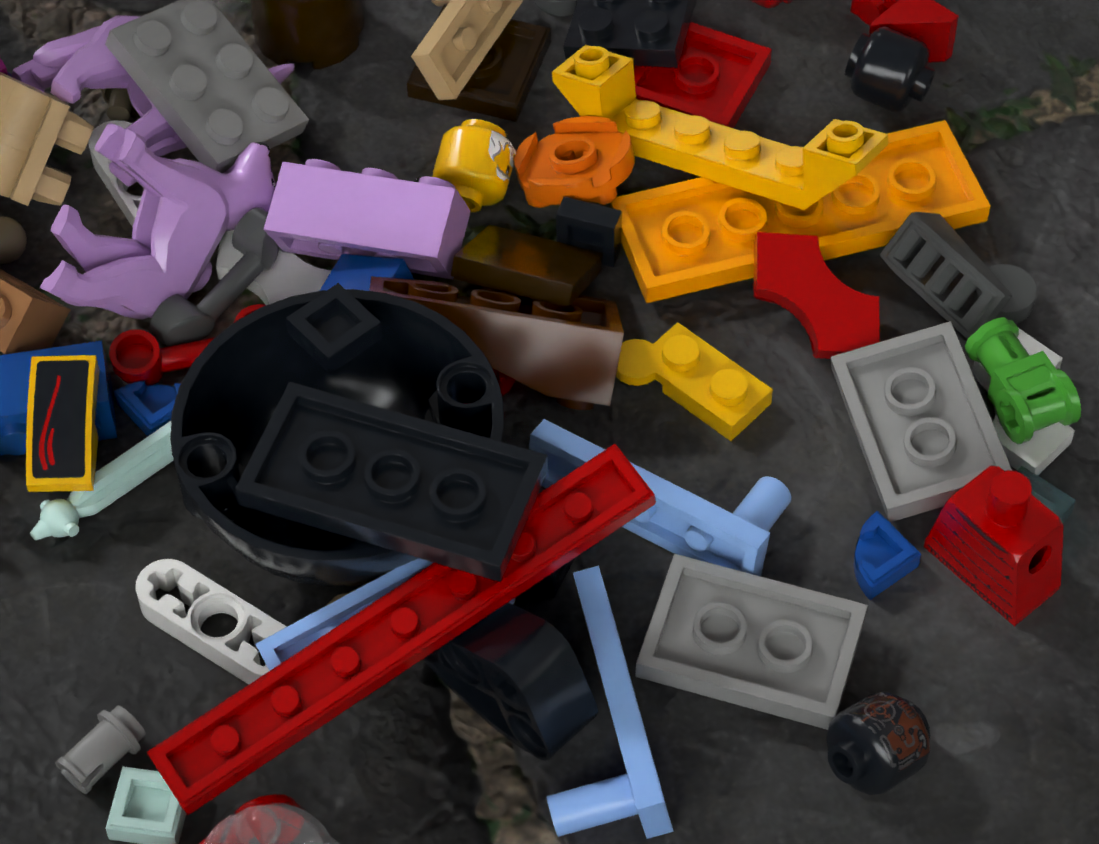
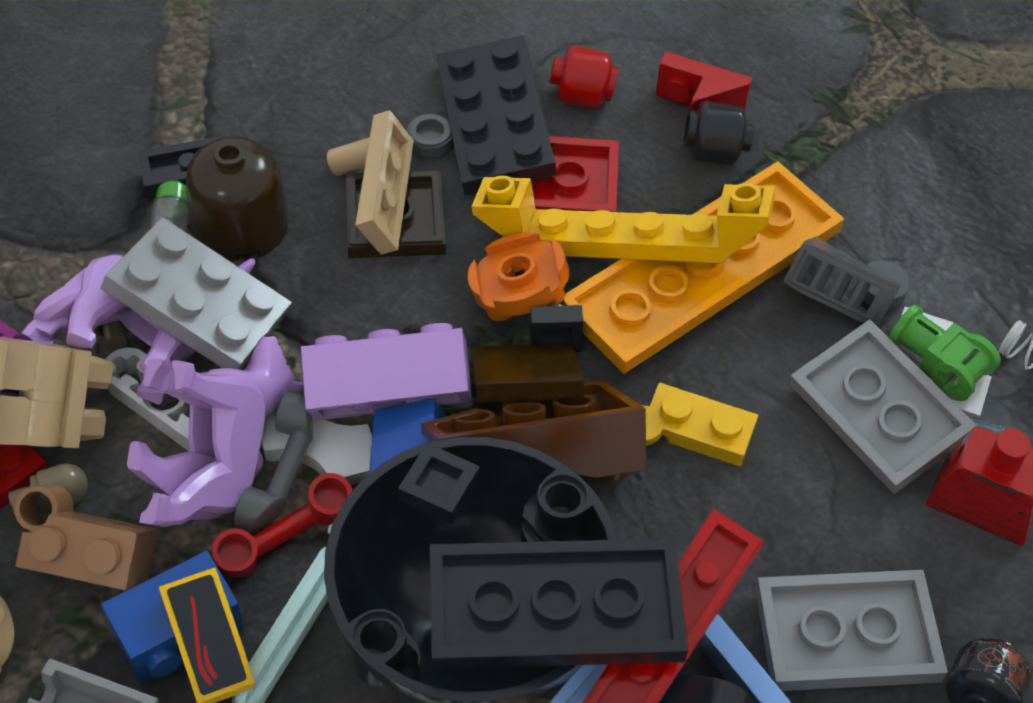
camera: 25 degrees left, 0 degrees up
(147, 405) = (268, 589): blue tile -> none
(476, 162) = (438, 296): yellow head -> none
(680, 518) = (786, 550): light blue piece -> none
(795, 276) = (735, 319): red tile -> none
(882, 556) = (901, 523): blue tile -> none

